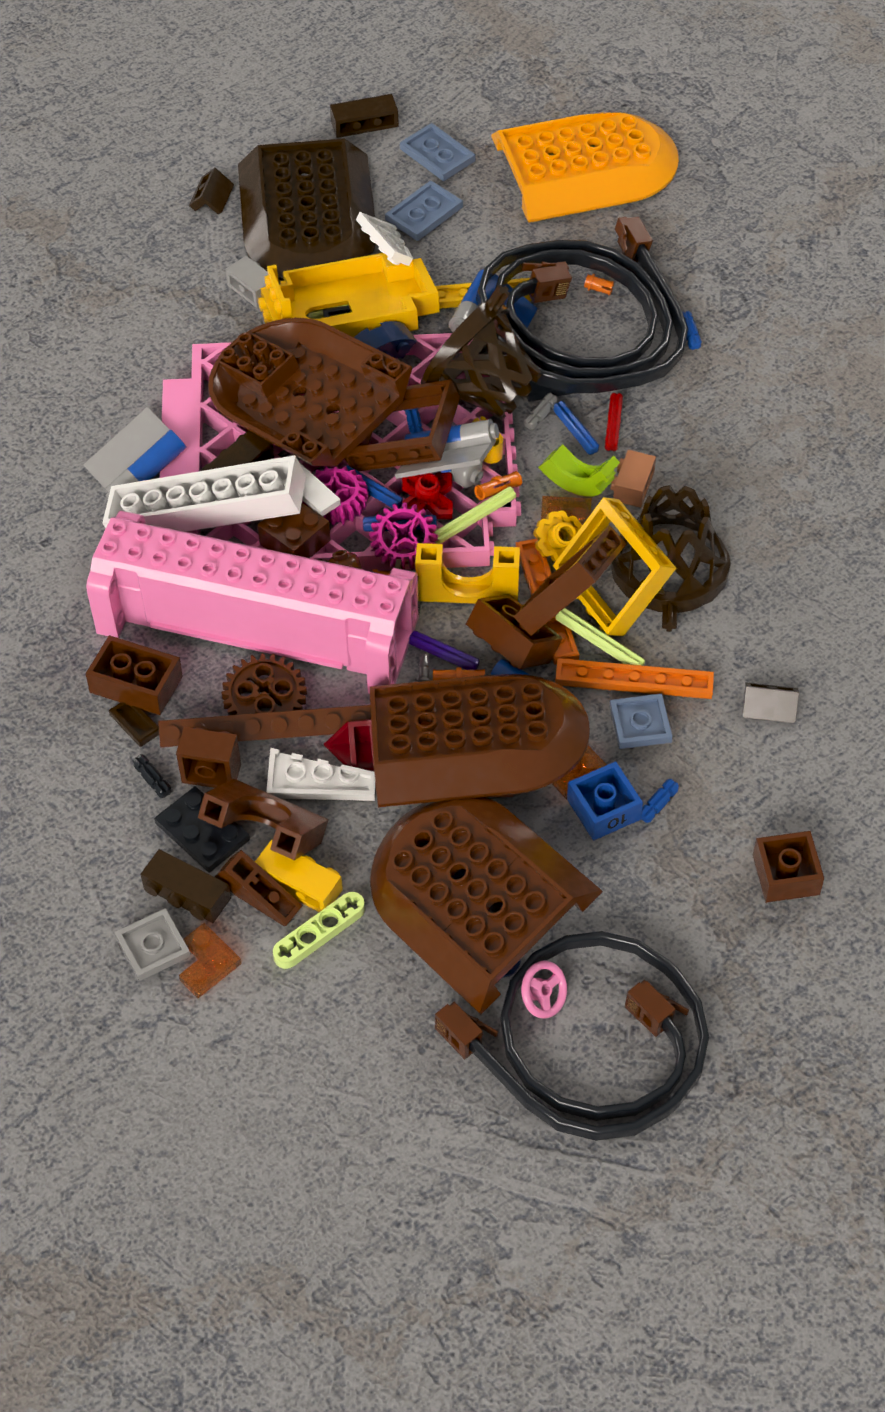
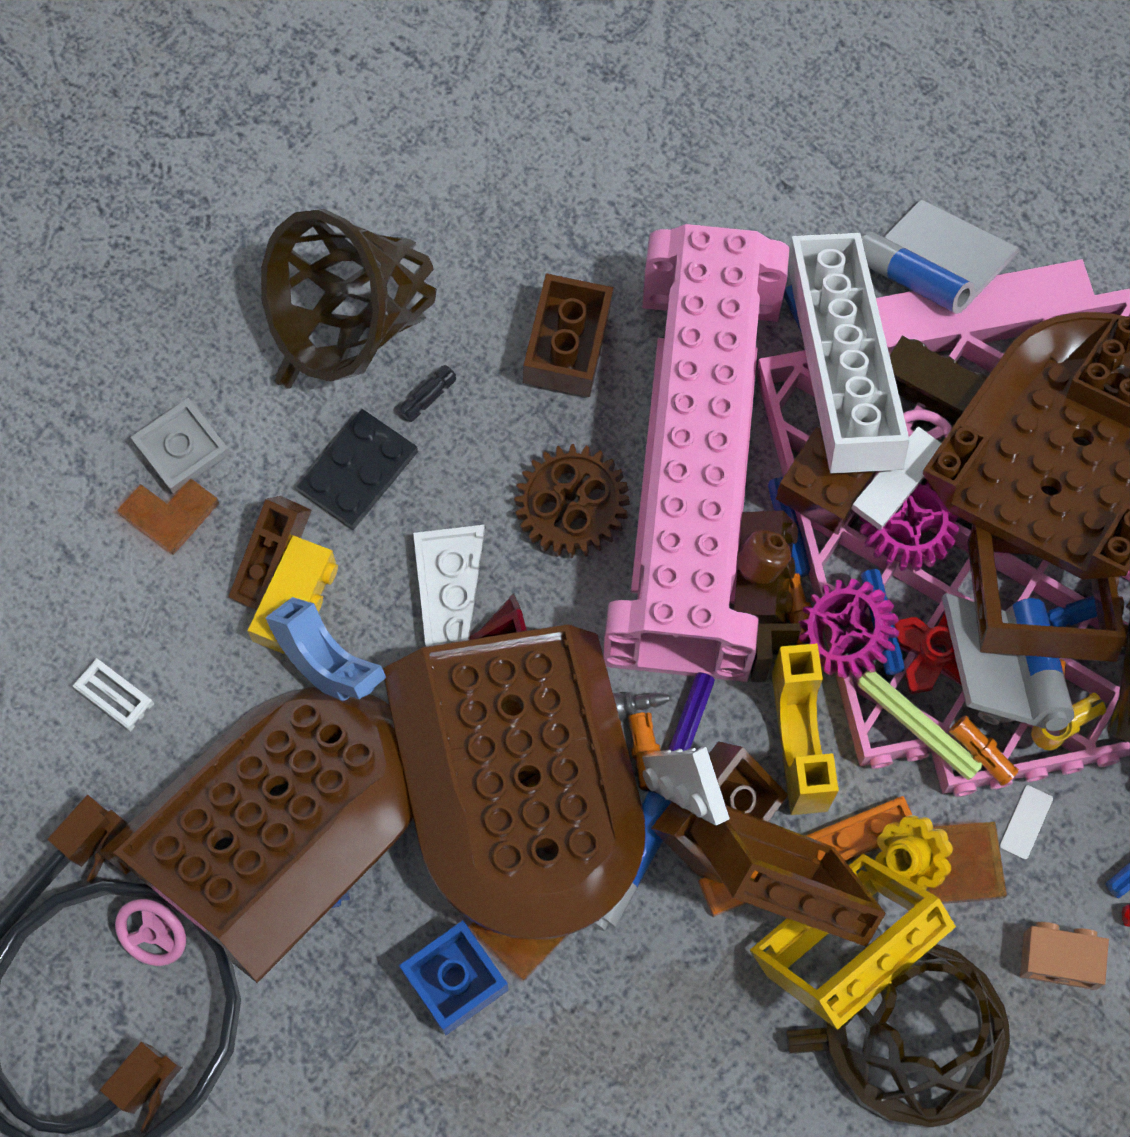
camera: 80 degrees right, 15 degrees up
(114, 823) = (294, 324): none -> dark brown piece
(135, 723) = (506, 358): dark brown tile -> none
(185, 886) = (263, 463): dark brown brick -> none
(208, 757) = (447, 450): reddish brown brick -> none
(267, 725) = (512, 505): reddish brown plate -> none
(295, 827) = (392, 505): reddish brown arch -> none
(322, 933) = (221, 640): yellowish green beam -> none
(339, 1032) = (136, 712): none -> white tile
(361, 850) = (318, 655): none -> medium blue arch
(379, 491) = (938, 576): blue axle -> none
(502, 620) = (687, 781): none -> white wing
(541, 485) = (1026, 822): none -> white sticker
(576, 475) = (1048, 867): lime arch -> none
(598, 638) = (734, 958): yellowish green axle -> none
(634, 678) = (683, 1002): orange plate -> none
(640, 721) = (609, 1017): sand blue plate -> none
(659, 800) = (479, 1058): blue axle -> none

